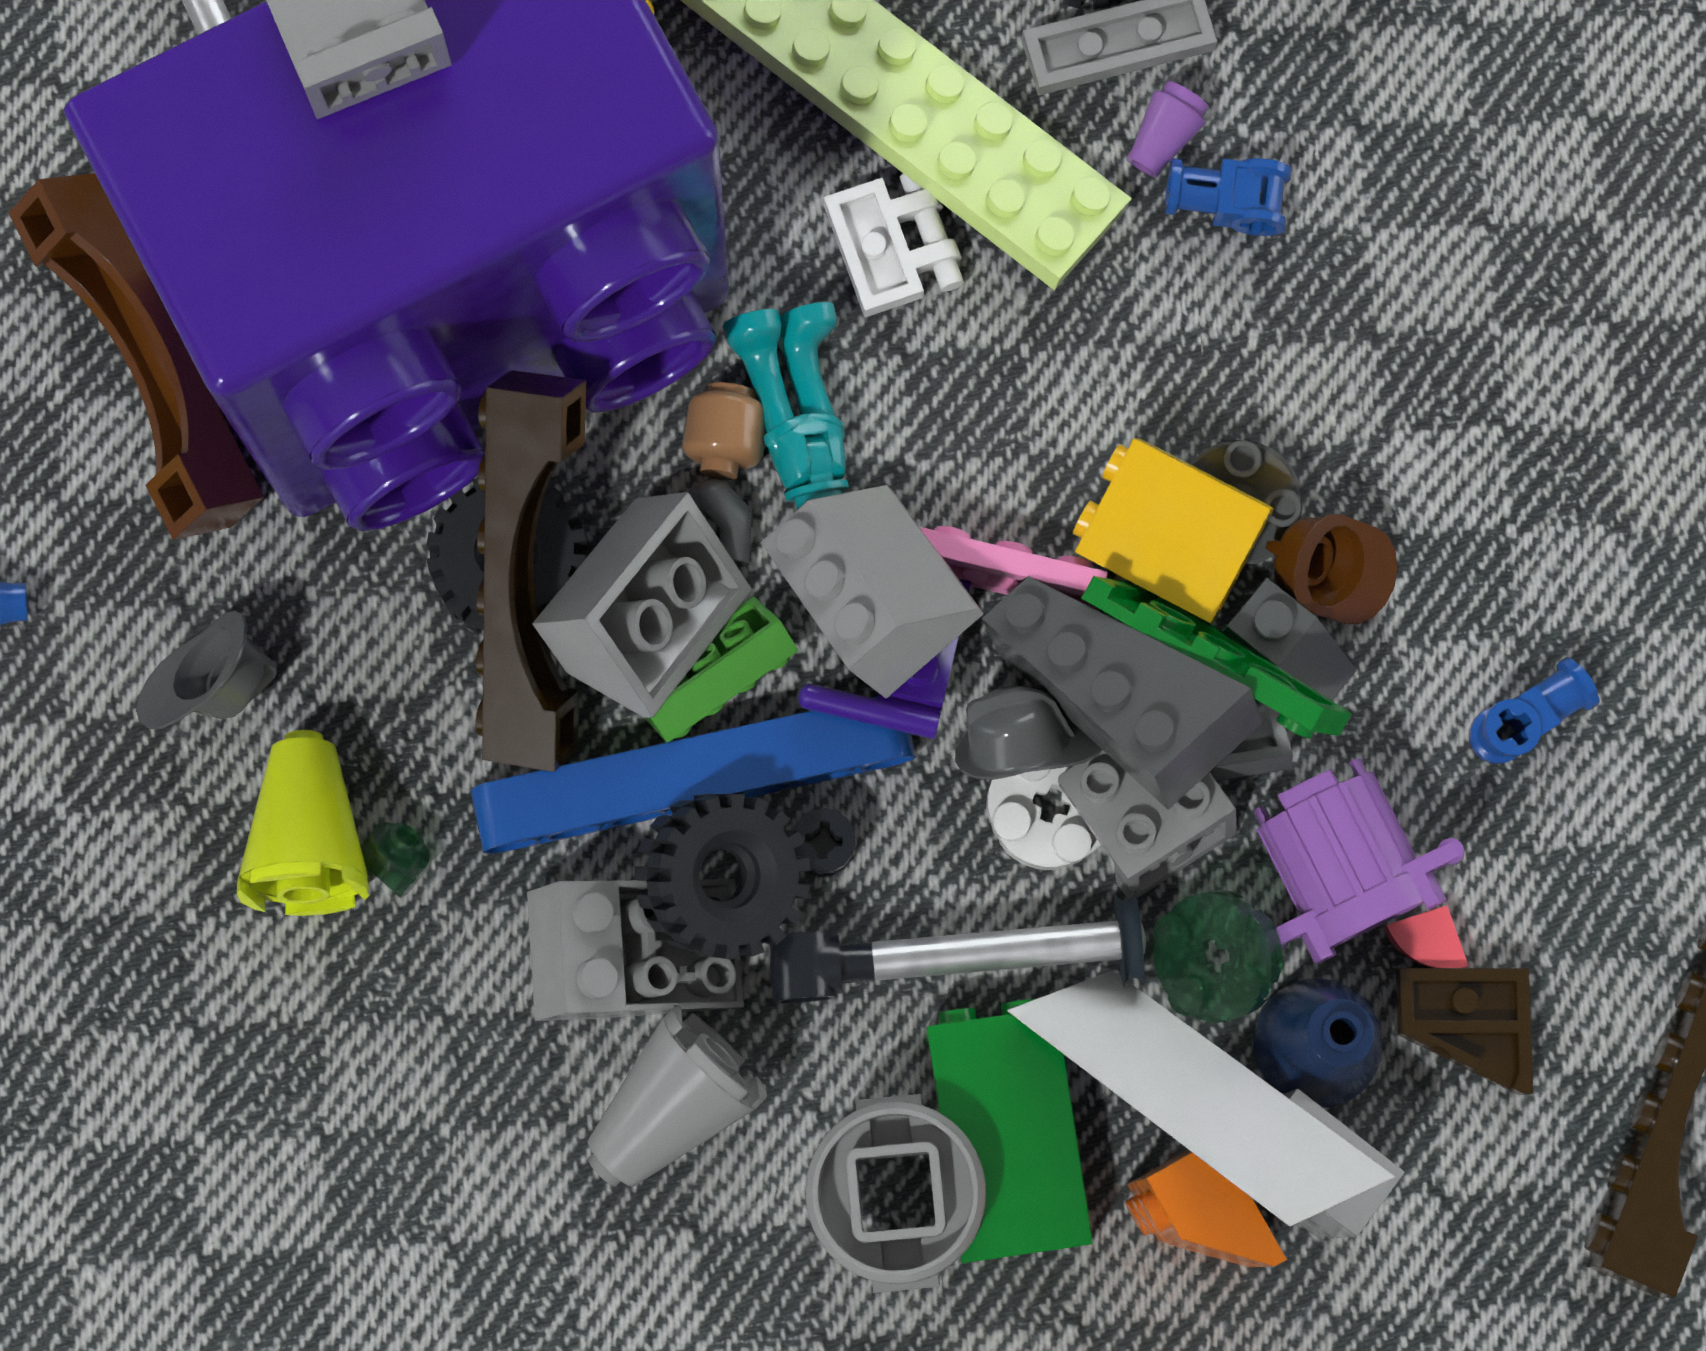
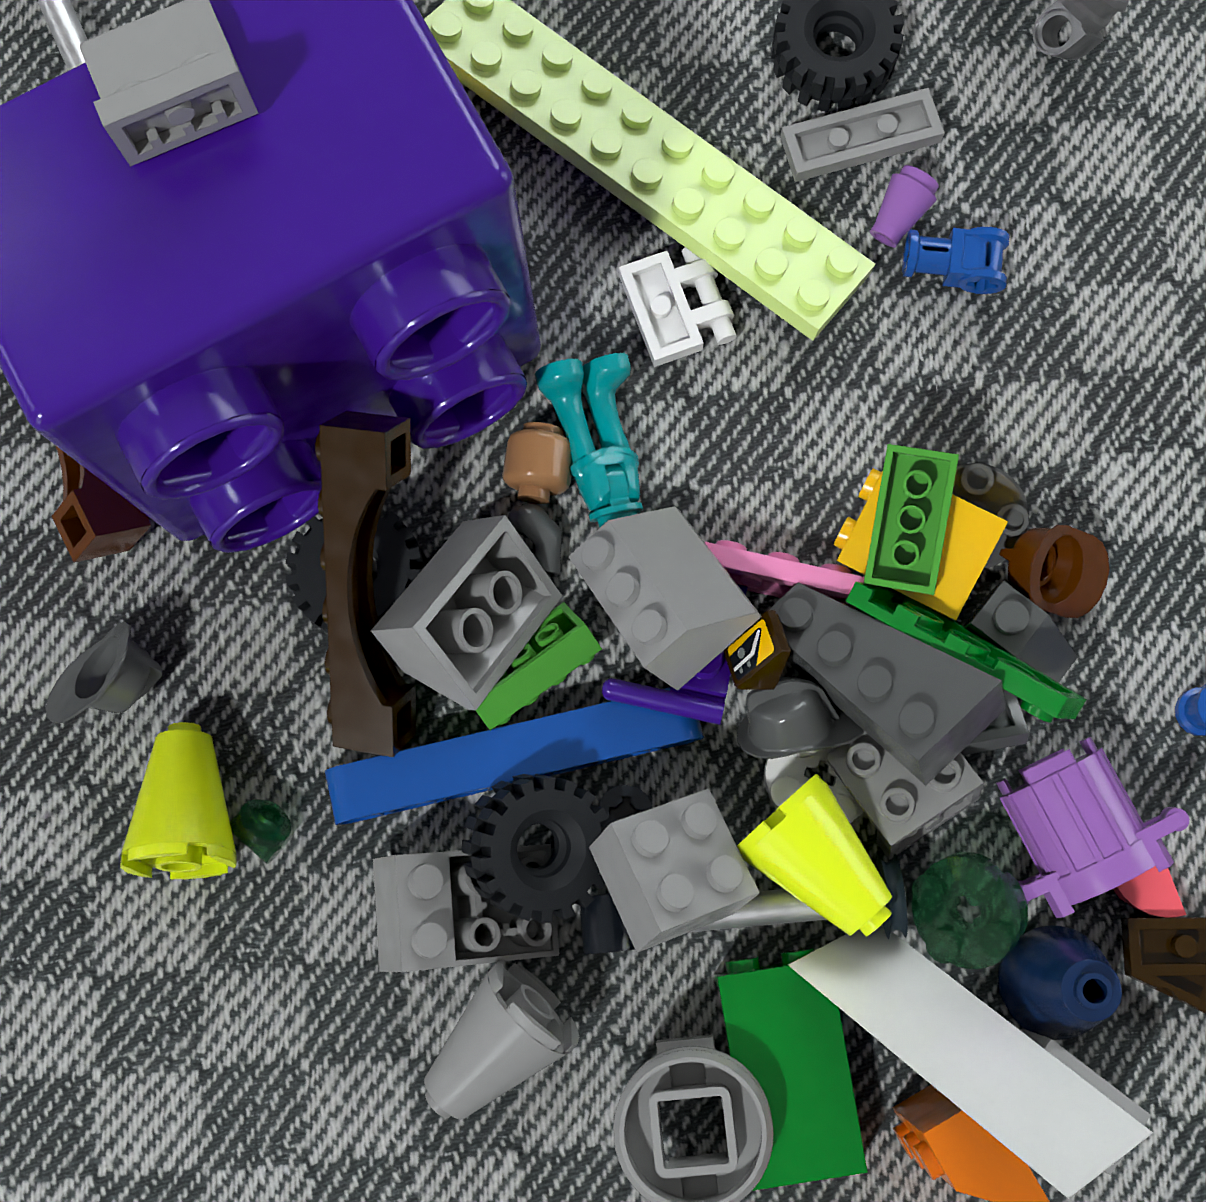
camera: 10 degrees right, 0 degrees up
(877, 899) = (672, 869): none -> light grey brick
(980, 658) = (759, 654): none -> slope
(1043, 889) = (819, 859): none -> neon yellow cone
(1158, 504) = (911, 519): none -> bright green piece

